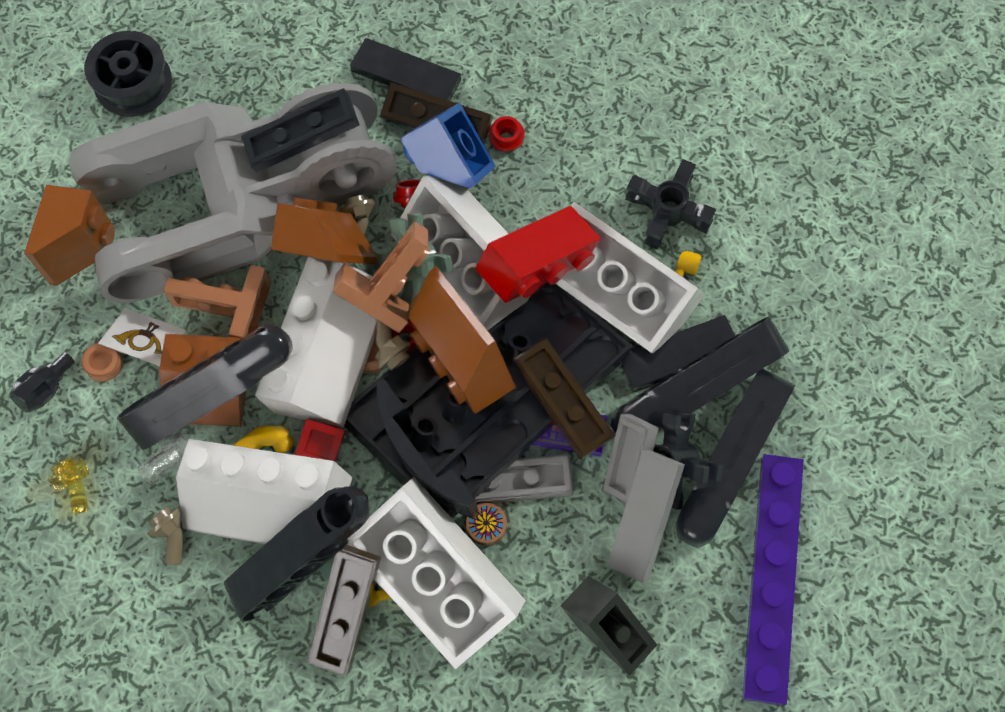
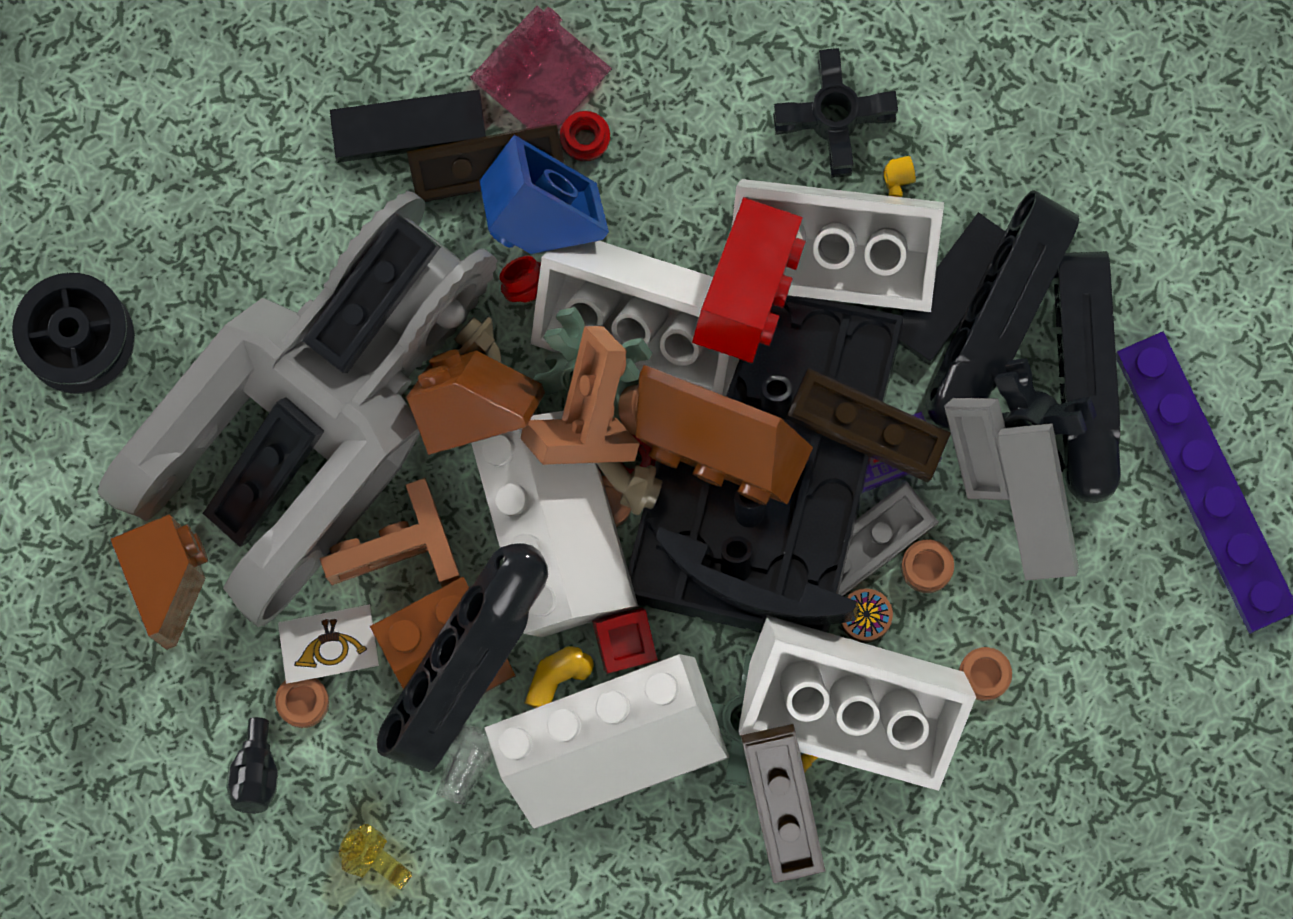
camera: 30 degrees left, 10 degrees up
(167, 525) = (517, 835): dark tan plate -> none
(176, 204) = (263, 471): none -> black tile
(297, 551) = (702, 774): black piece -> none
(505, 83) = (540, 71): none -> clear pink hinge
(540, 612) = (987, 672): none -> nougat tile
(548, 517) = (927, 566): none -> nougat tile
(609, 624) = (1067, 641): pearl dark grey slope -> none

